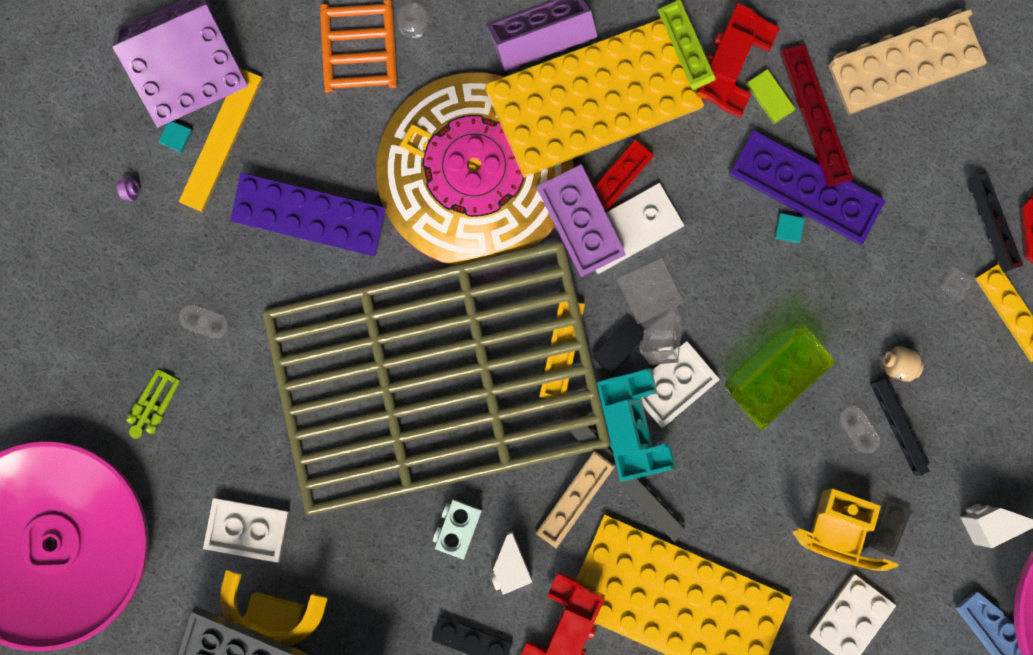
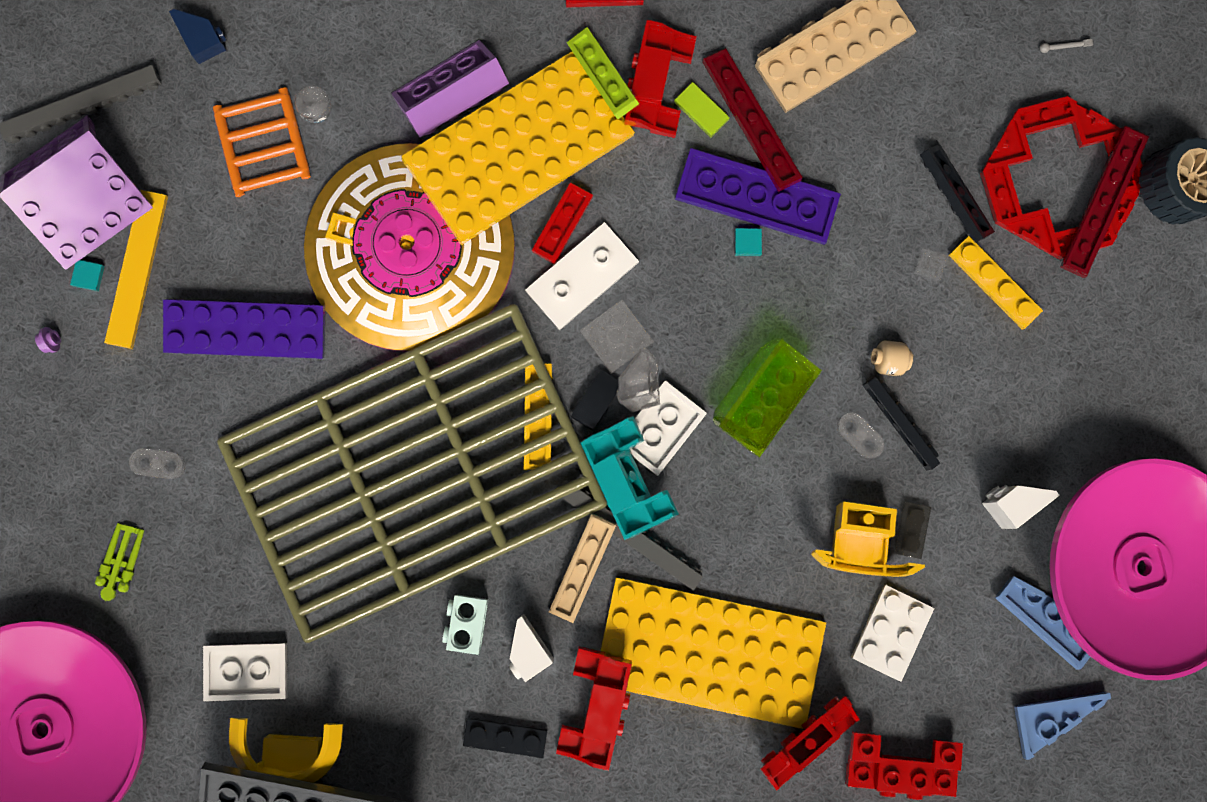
camera: 20 degrees left, 0 degrees up
(581, 220) = (529, 278): medium lavender plate -> none

